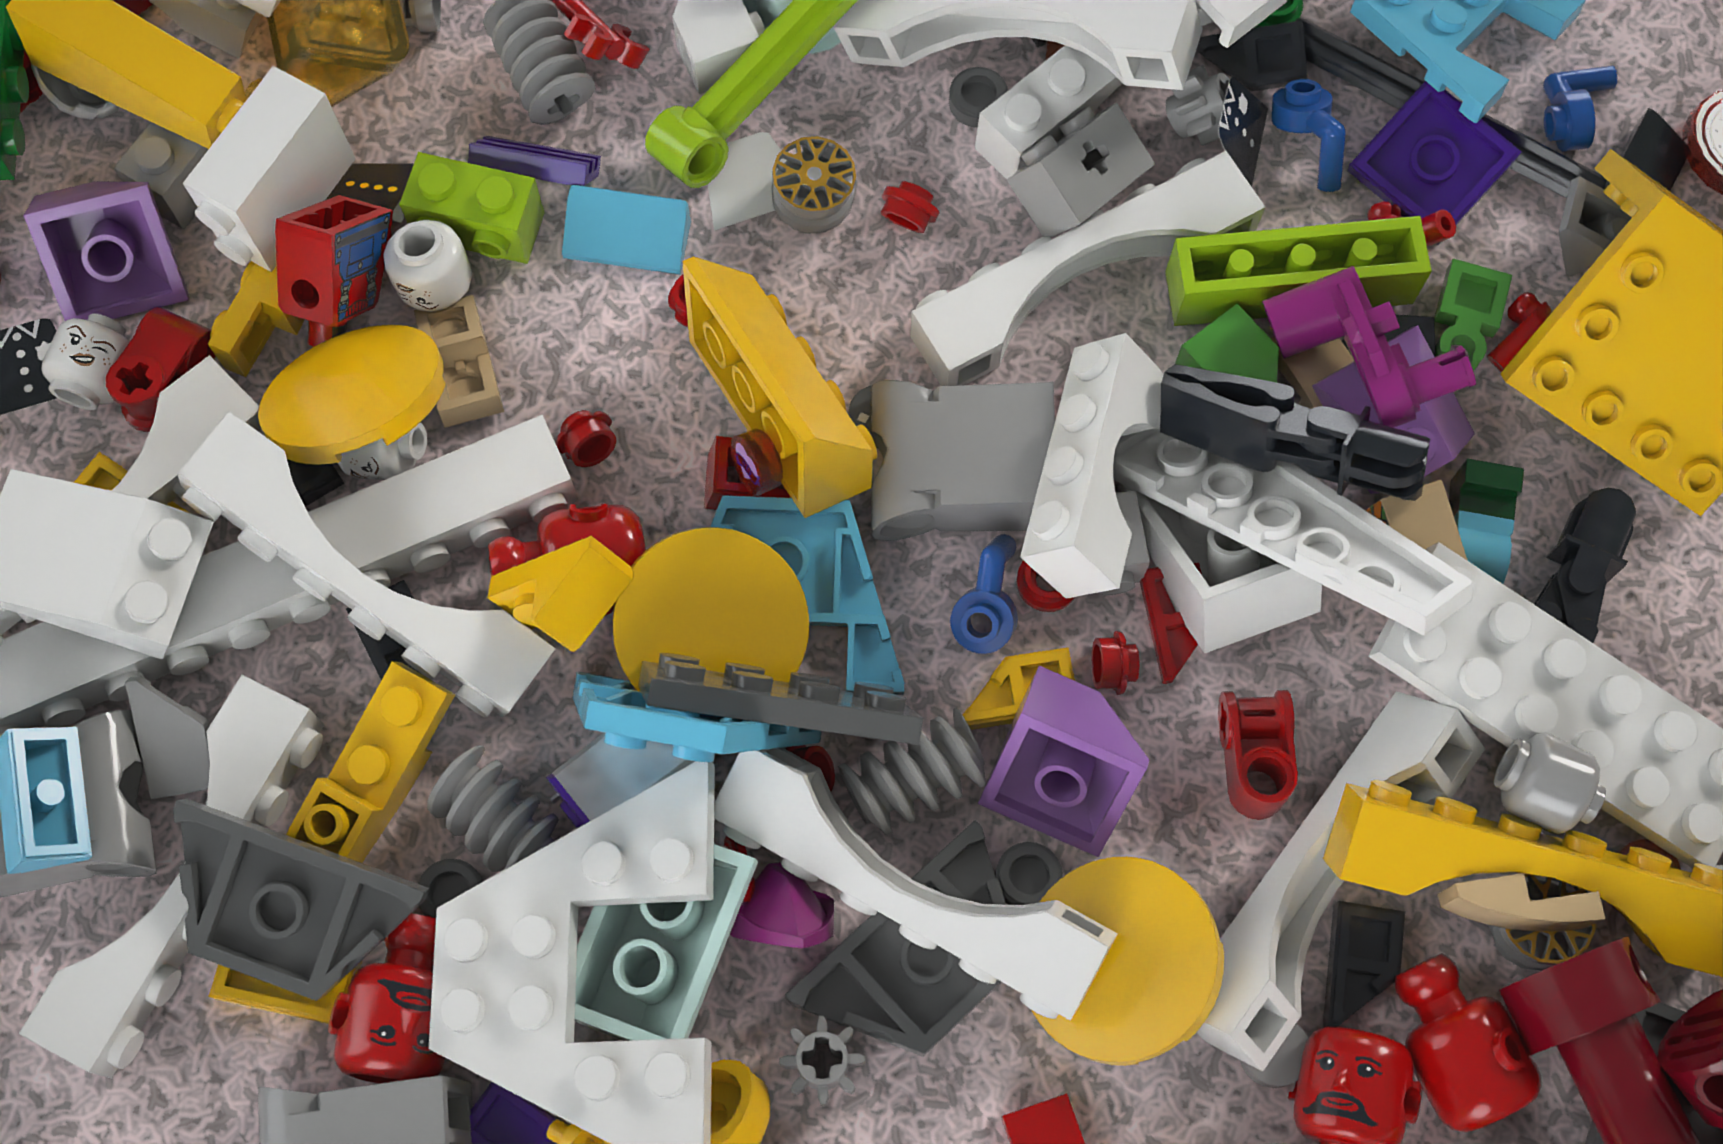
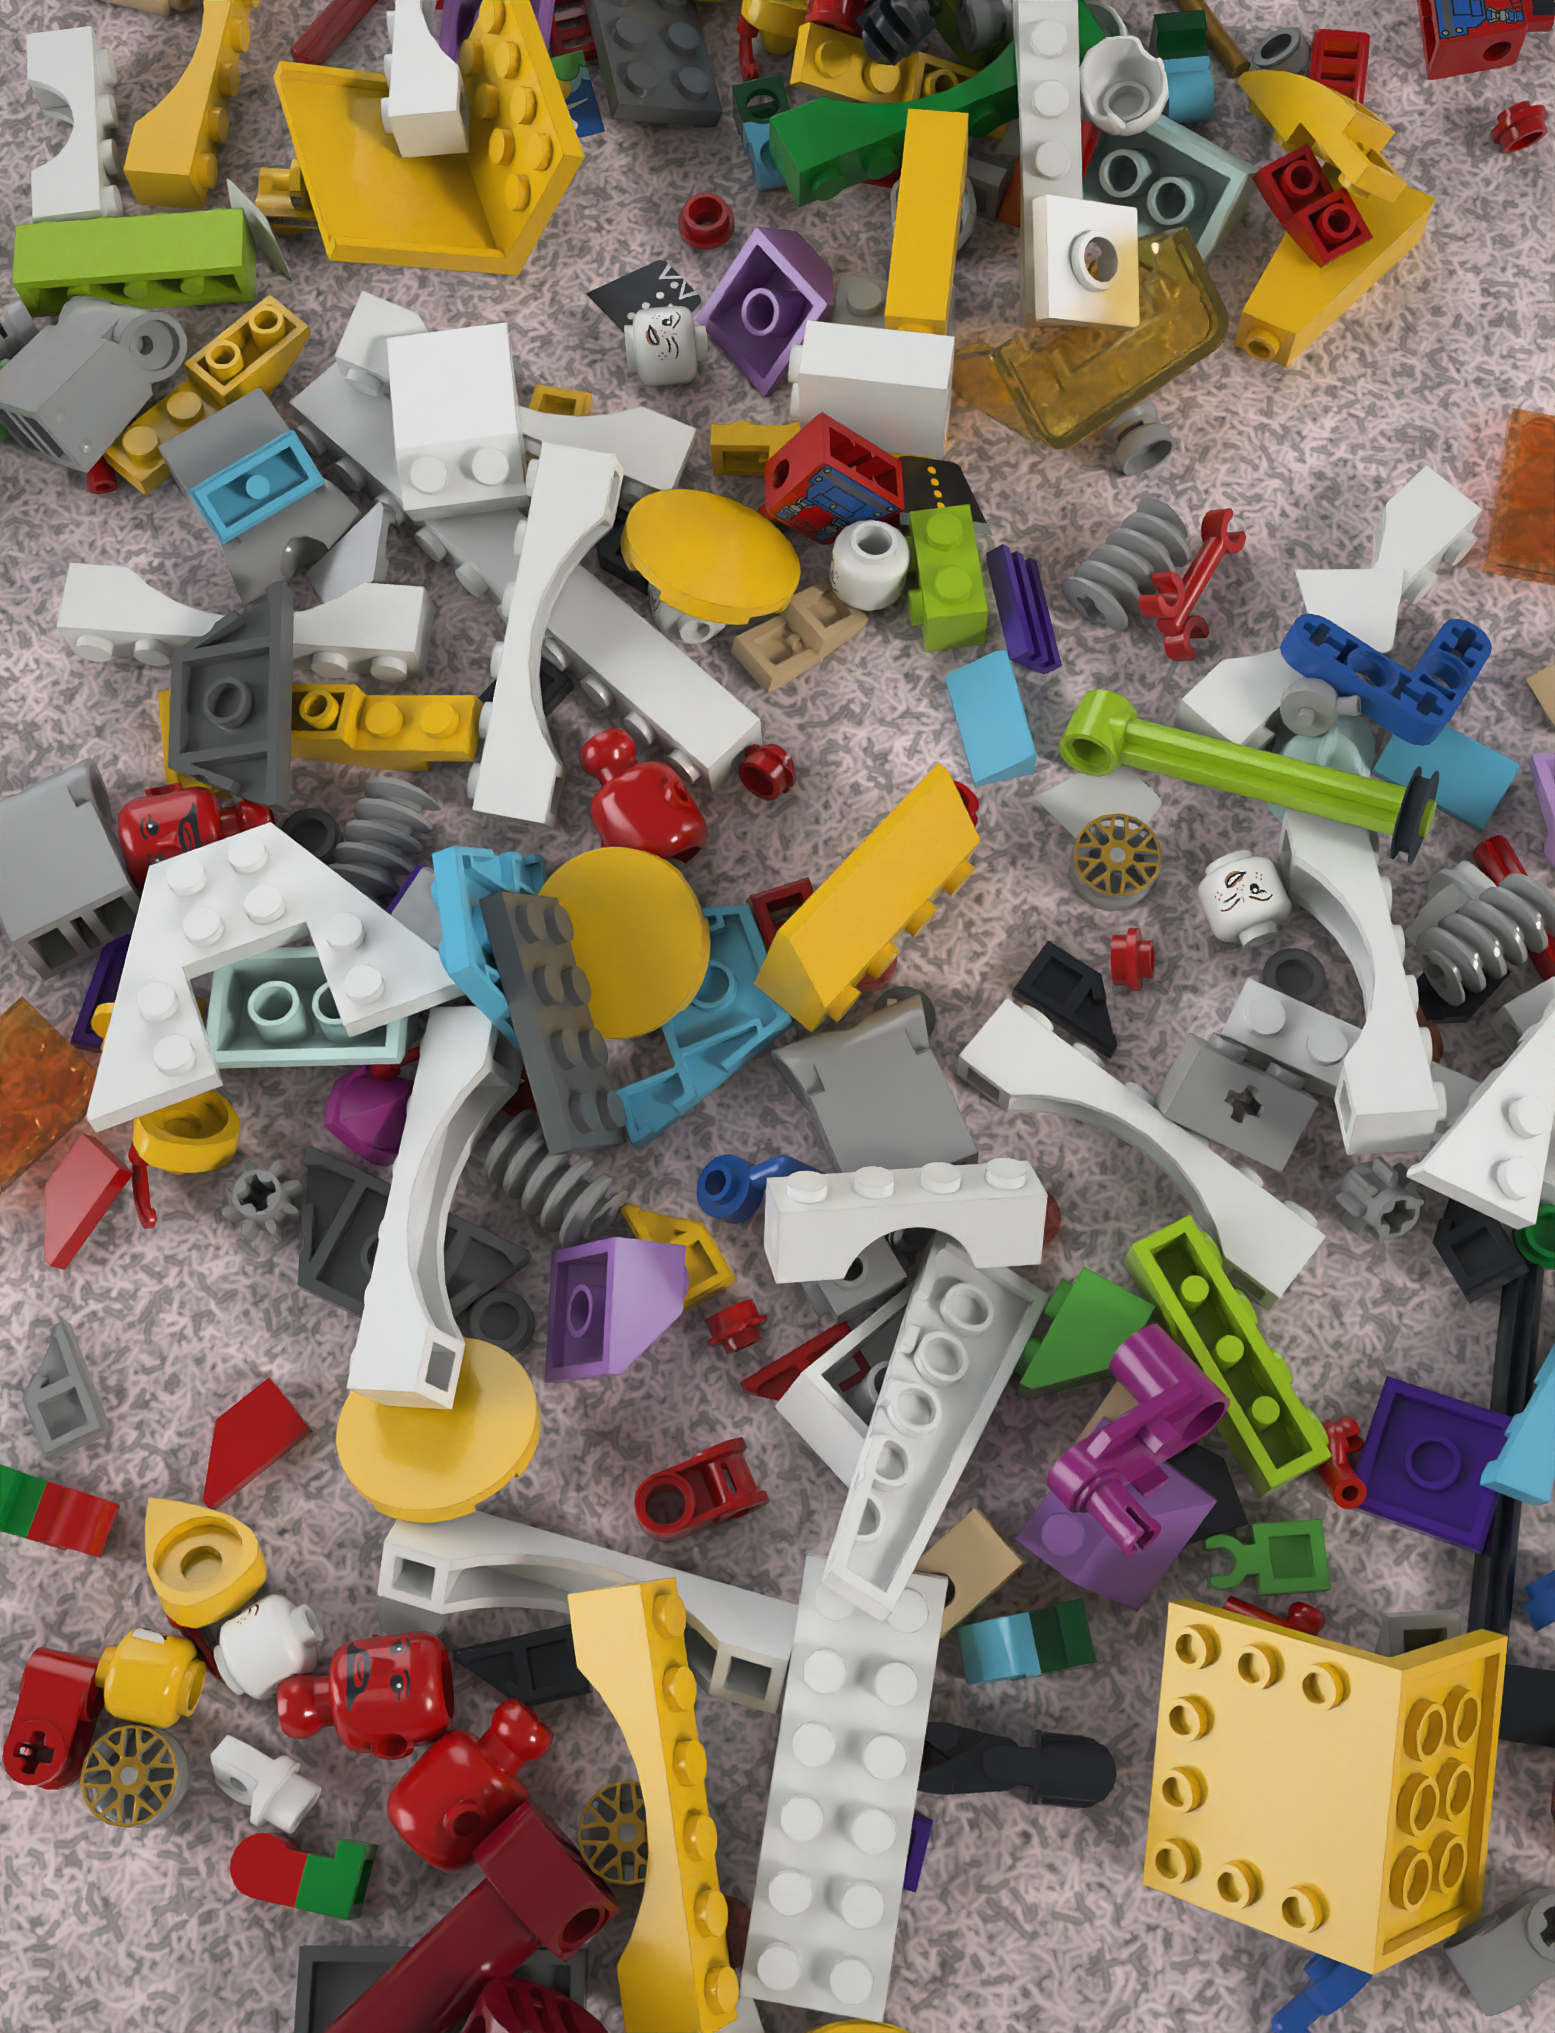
camera: 75 degrees right, 0 degrees up
(153, 359) = (687, 393): red piece -> none
(563, 590) = (581, 802): yellow slope -> none
(756, 461) = (783, 913): clear red tile -> none
(895, 97) = (1244, 899): none -> white head
(914, 271) = (1069, 997): none -> black tile
(1242, 127) = (1369, 1250): black sticker -> none
(1262, 424) = (1011, 1376): black arm -> none
(1308, 109) = (1429, 1310): blue plate -> none
(1507, 905) = (610, 1769): tan slope -> none
(1550, 783) = (743, 1778): light grey head -> none

